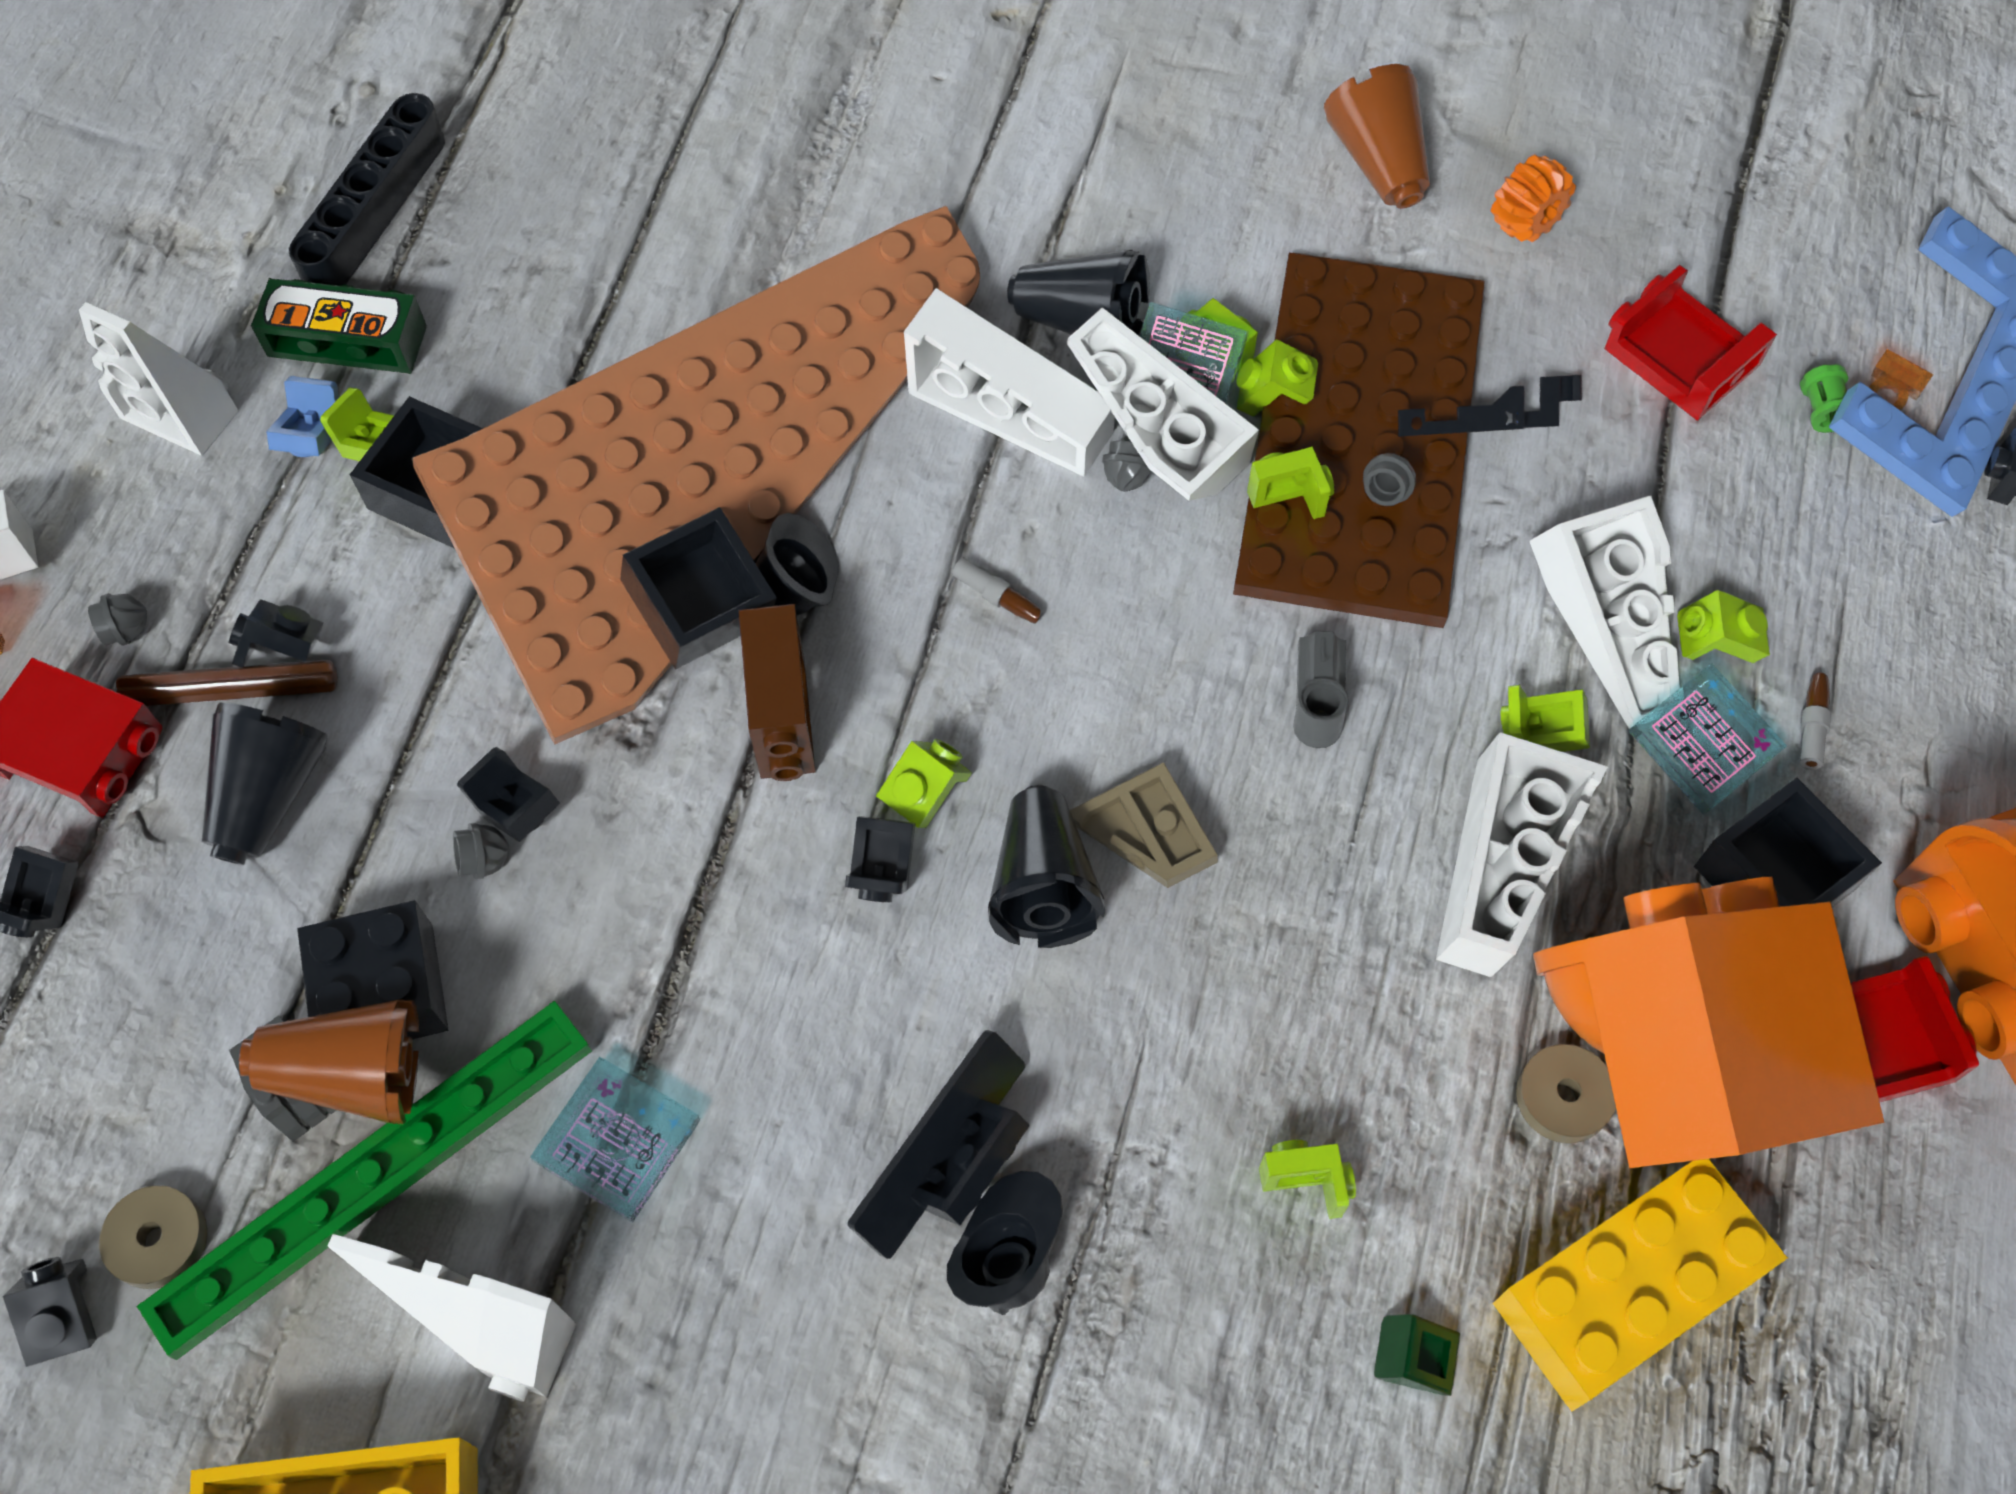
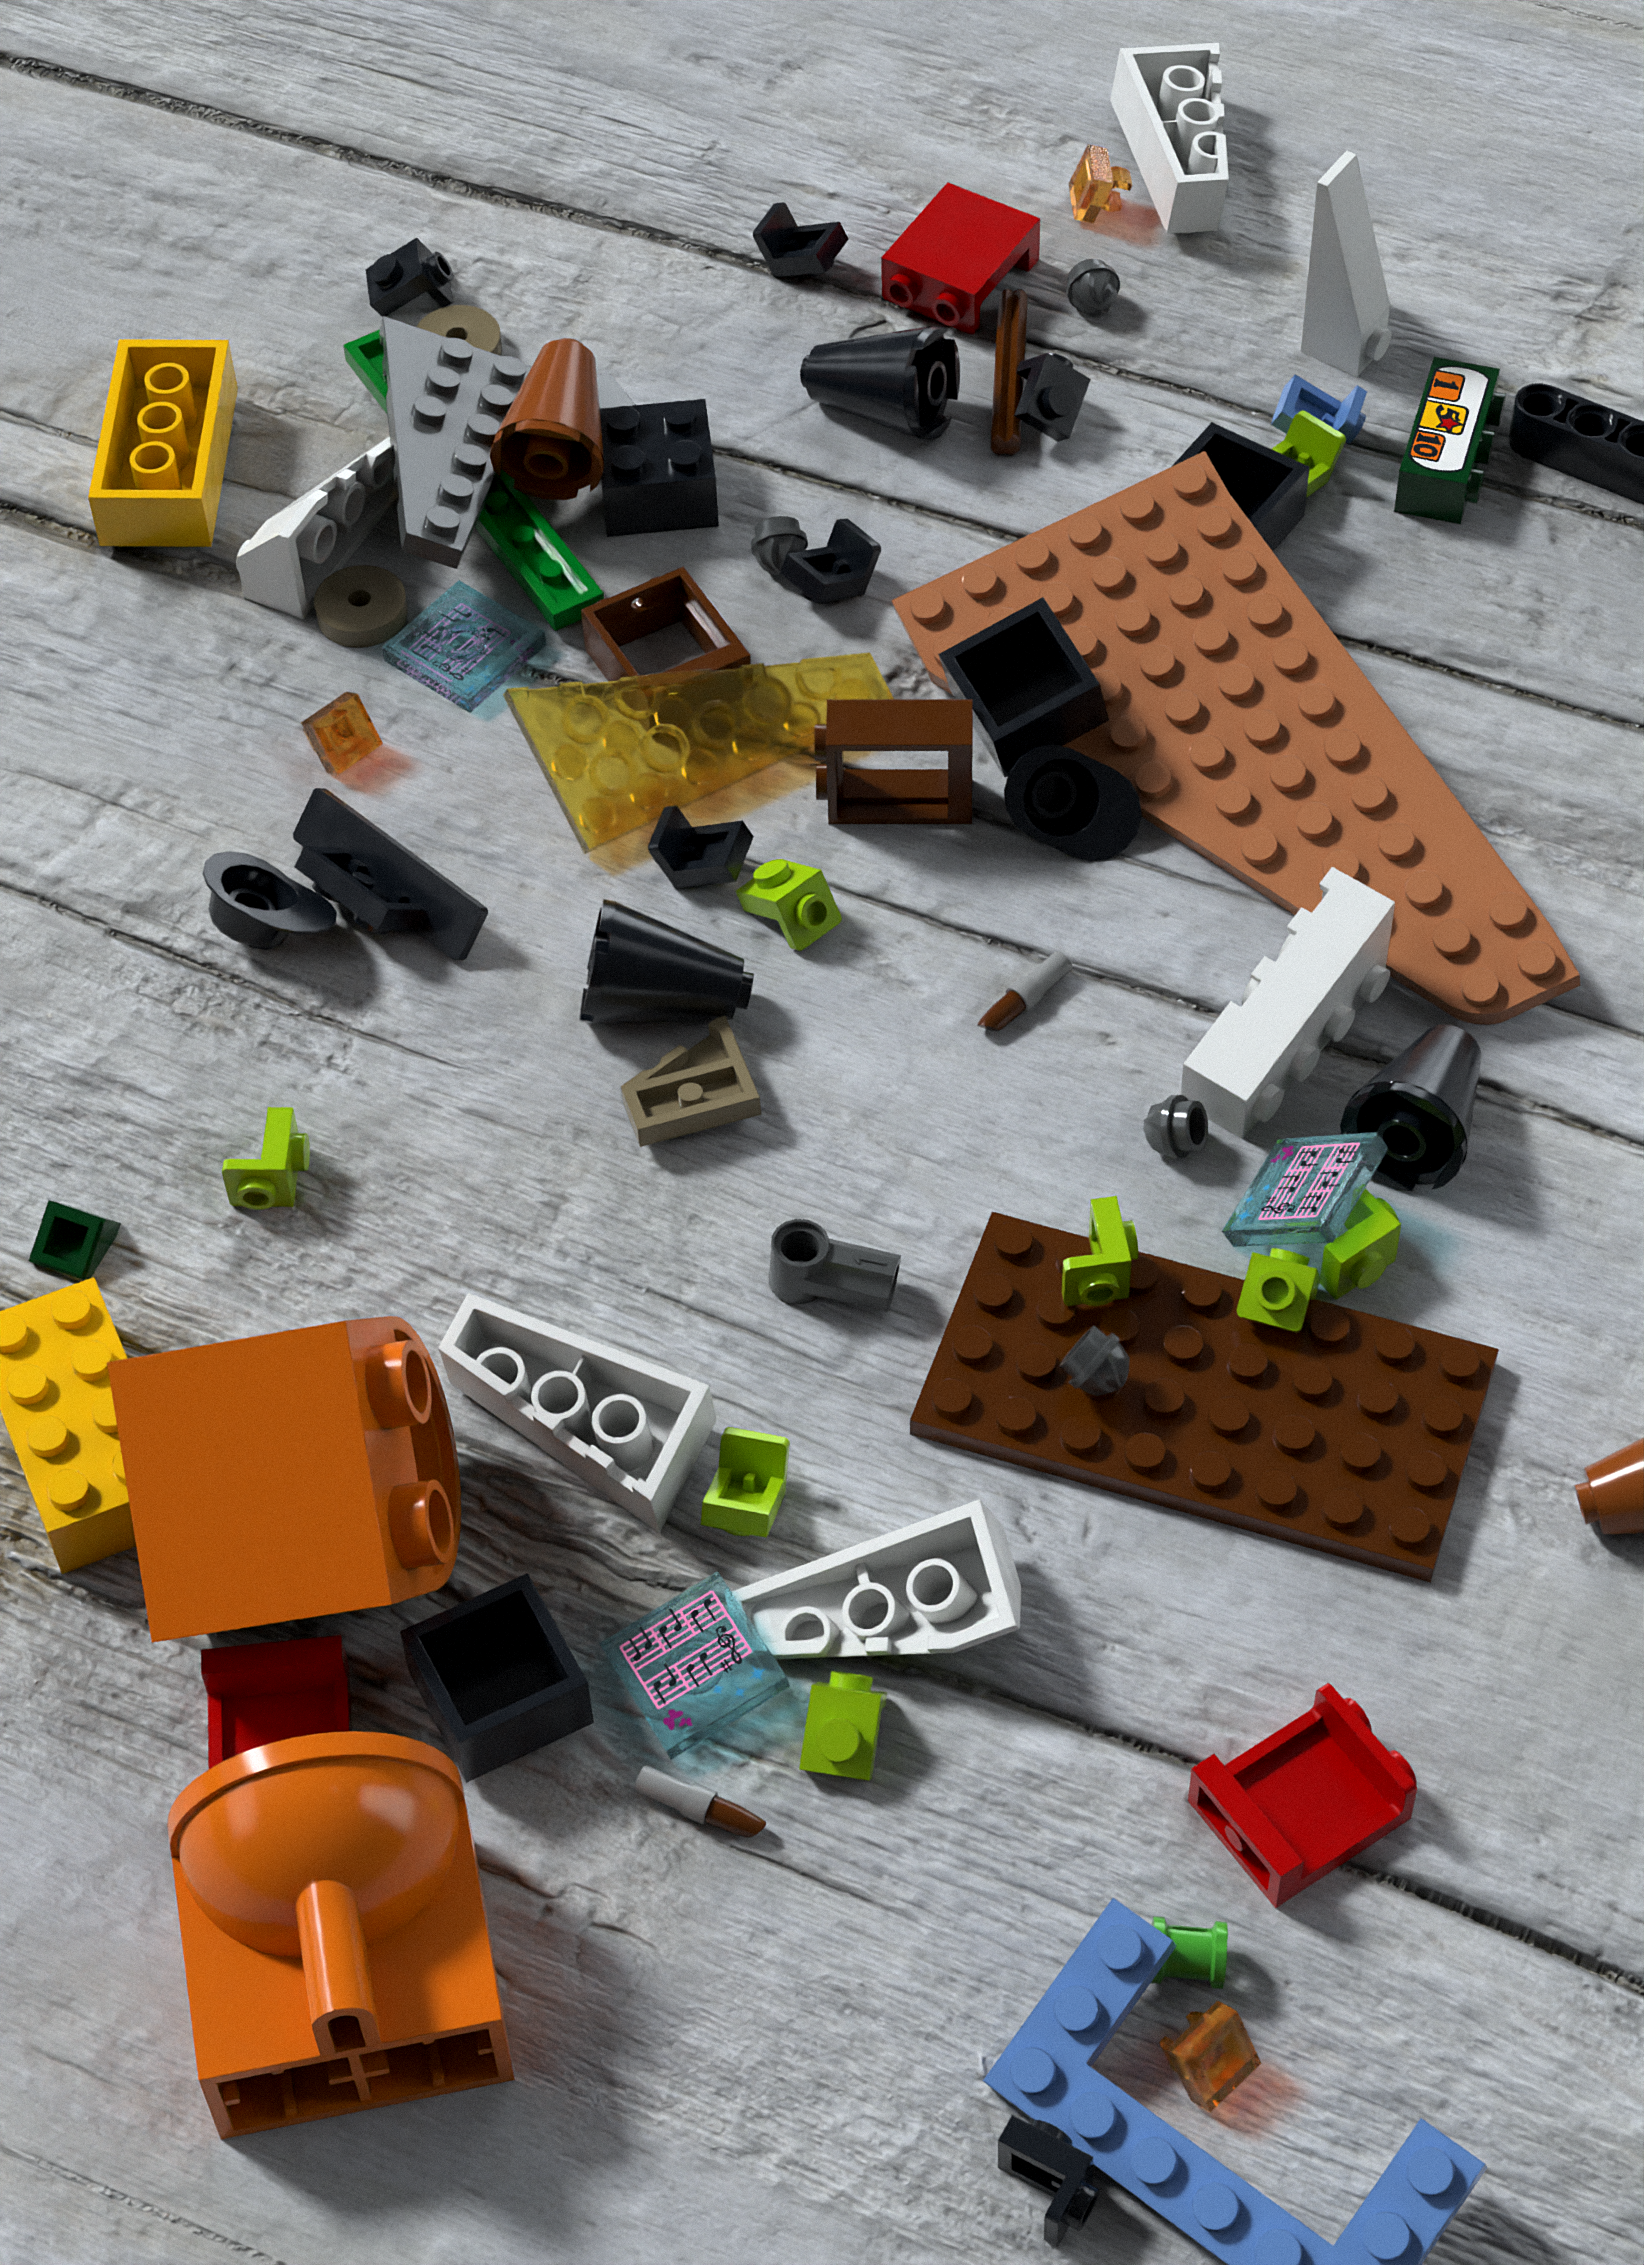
camera: 100 degrees right, 10 degrees down
(330, 1188) = (442, 423): none -> wing
(549, 1234) = (381, 603): none -> dark tan piece
(603, 892) = (660, 604): none -> reddish brown window
(761, 1229) = (341, 733): none -> clear orange tile
(762, 911) = (676, 737): none -> clear yellow wing
(1166, 414) = (1206, 1153): white wedge -> none
(1494, 416) = (1209, 1548): black piece -> none
(1533, 198) = (1557, 1635): orange gear -> none

